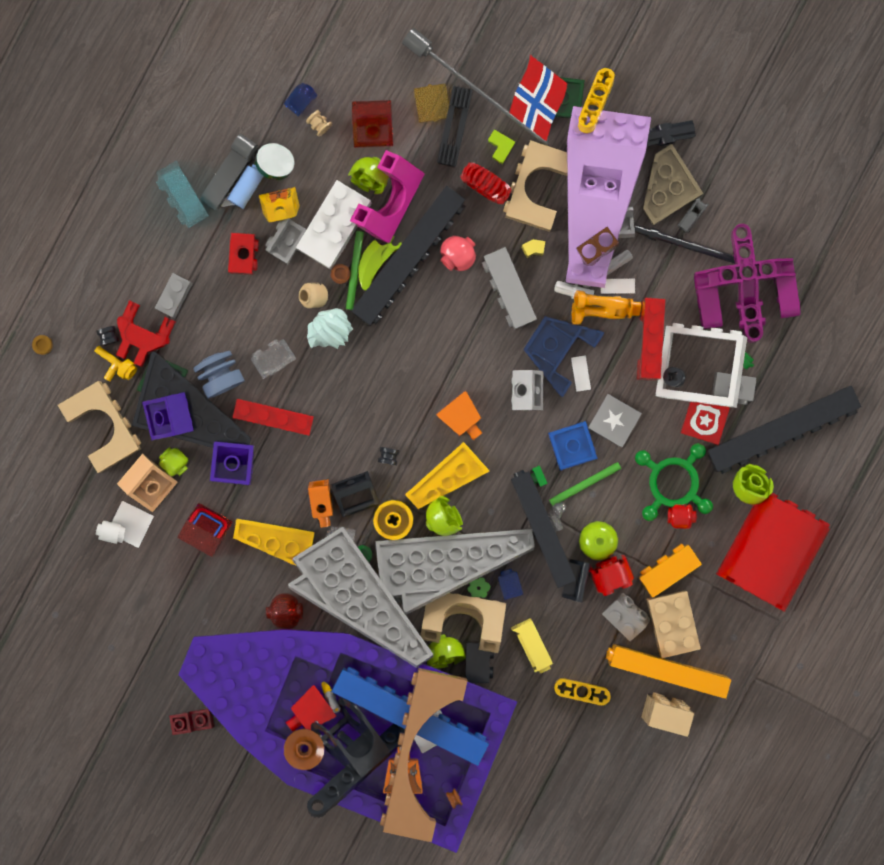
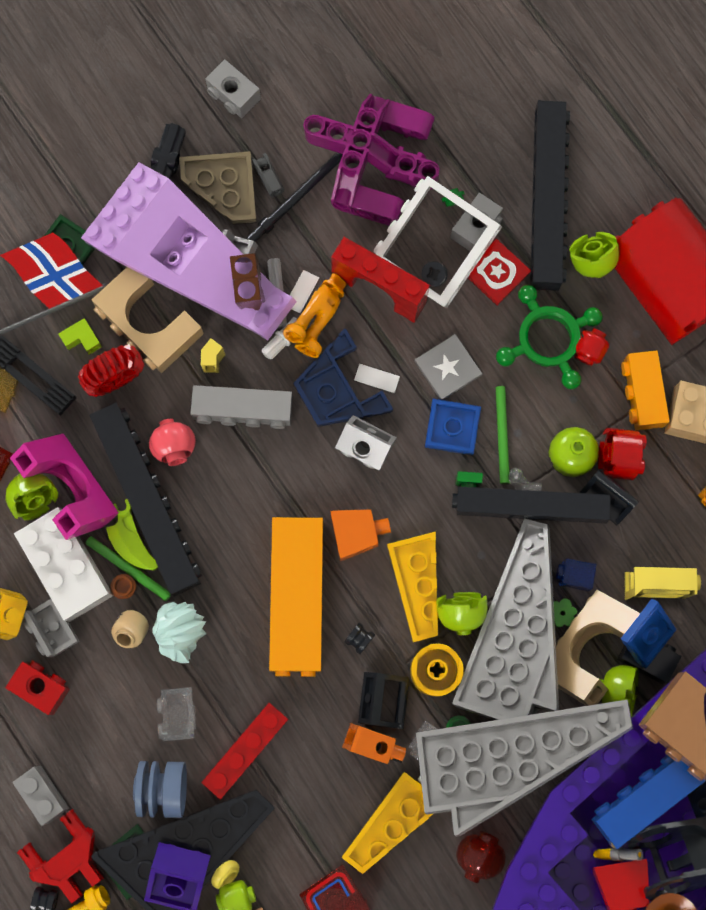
camera: 60 degrees left, 10 degrees down
(186, 446) = (225, 874): none -> light yellow piece
(232, 463) = (273, 828): dark purple slope -> none
(395, 397) = (296, 596): none -> light orange brick
(490, 652) = (648, 633): none -> blue tile
(598, 101) = (88, 208): yellow beam -> none
(626, 616) = (675, 463): light grey bracket -> none
(753, 145) = (227, 77): none -> light grey brick

